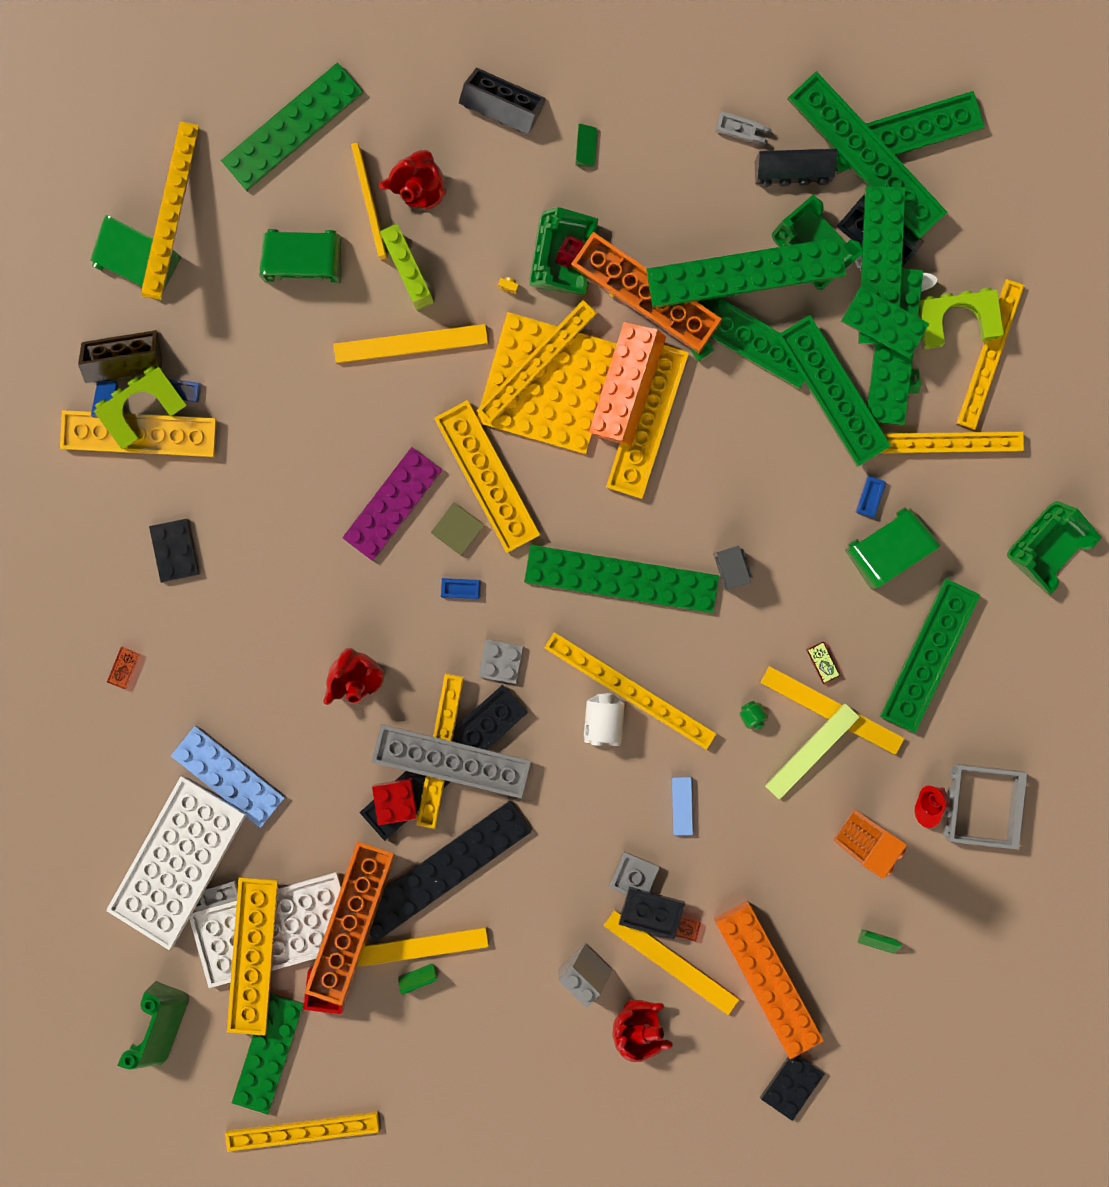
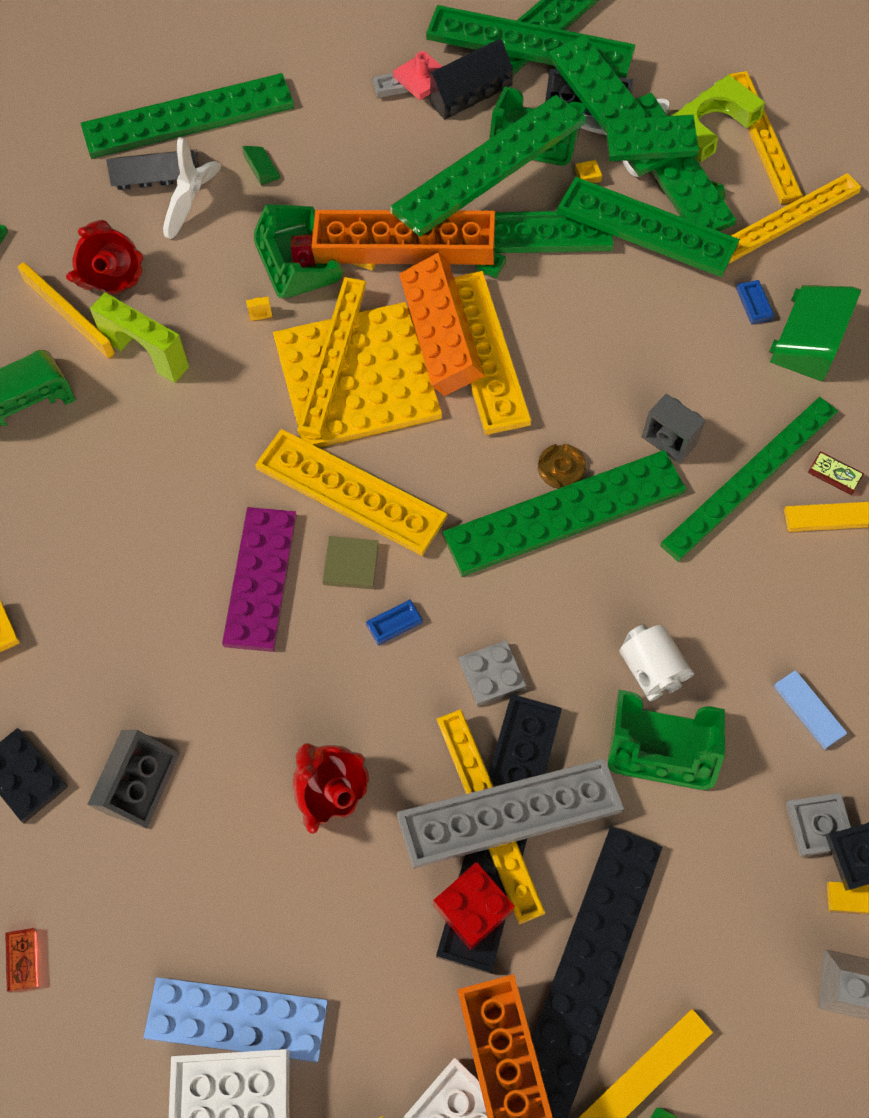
camera: 30 degrees left, 25 degrees down
(240, 596) = (133, 778): none -> dark grey slope
(410, 343) = (184, 414): yellow tile -> none
(513, 145) = (188, 184): none -> white piece
(556, 58) = (186, 115): none -> green plate
(577, 772) = (666, 745): none -> green windscreen
(630, 690) = (673, 616): yellow plate -> none
(642, 543) = (561, 465): none -> pearl gold tile
(753, 715) = (809, 563): green head -> none
(759, 134) = (416, 74): none -> coral tile
(764, 629) = (748, 479): none -> green plate
(828, 308) = (588, 171): none -> yellow plate

